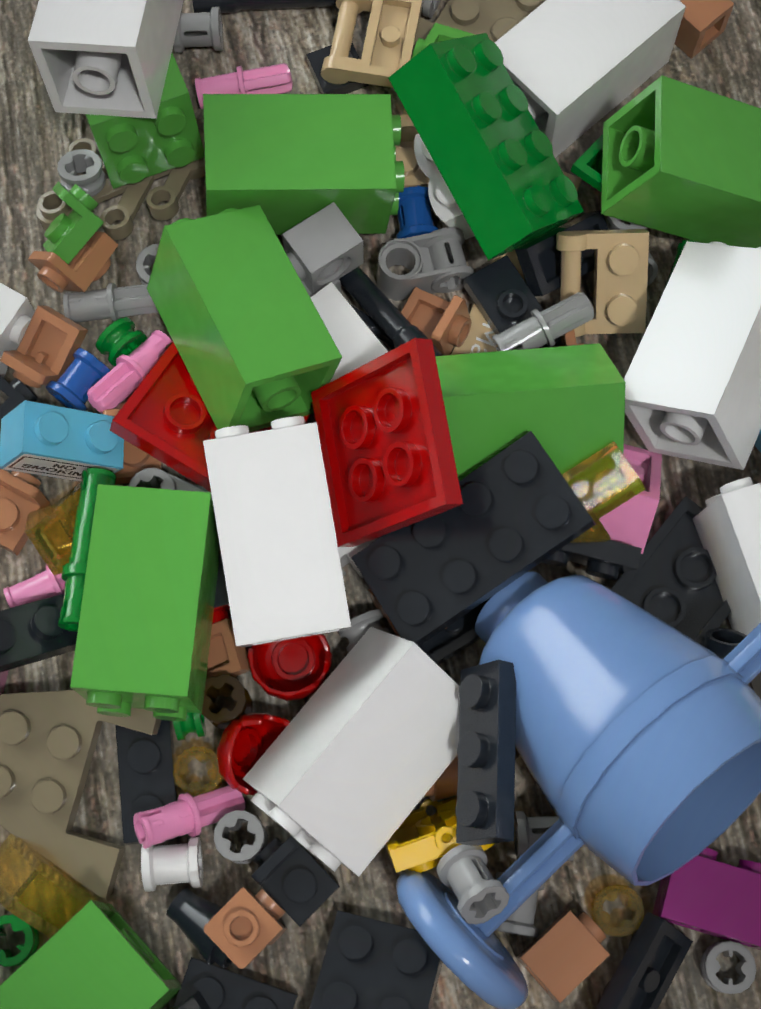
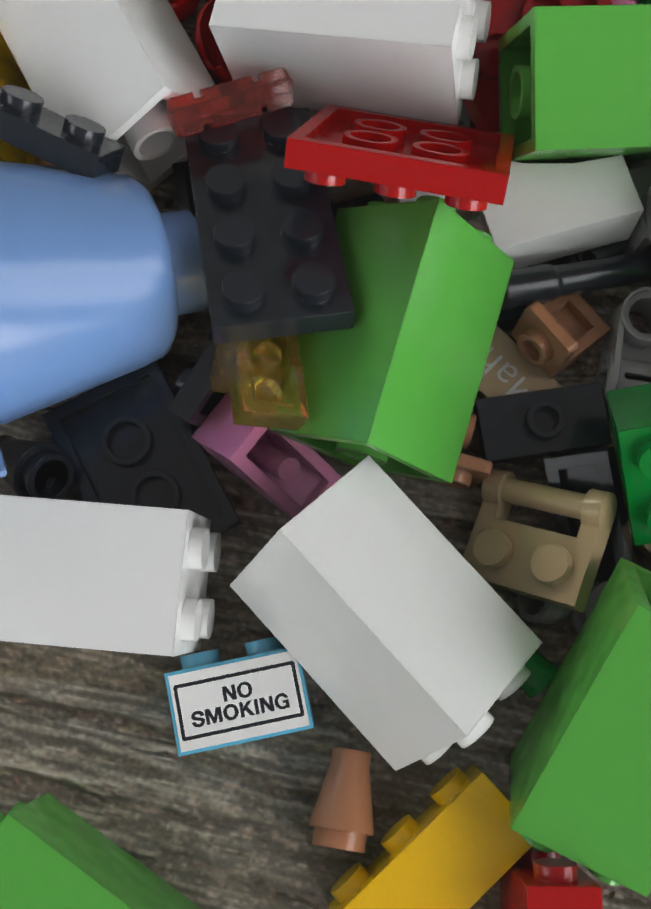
camera: 110 degrees right, 5 degrees up
(390, 602) = (230, 102): none -> clear red axle
(546, 325) = (500, 434): light grey axle -> none

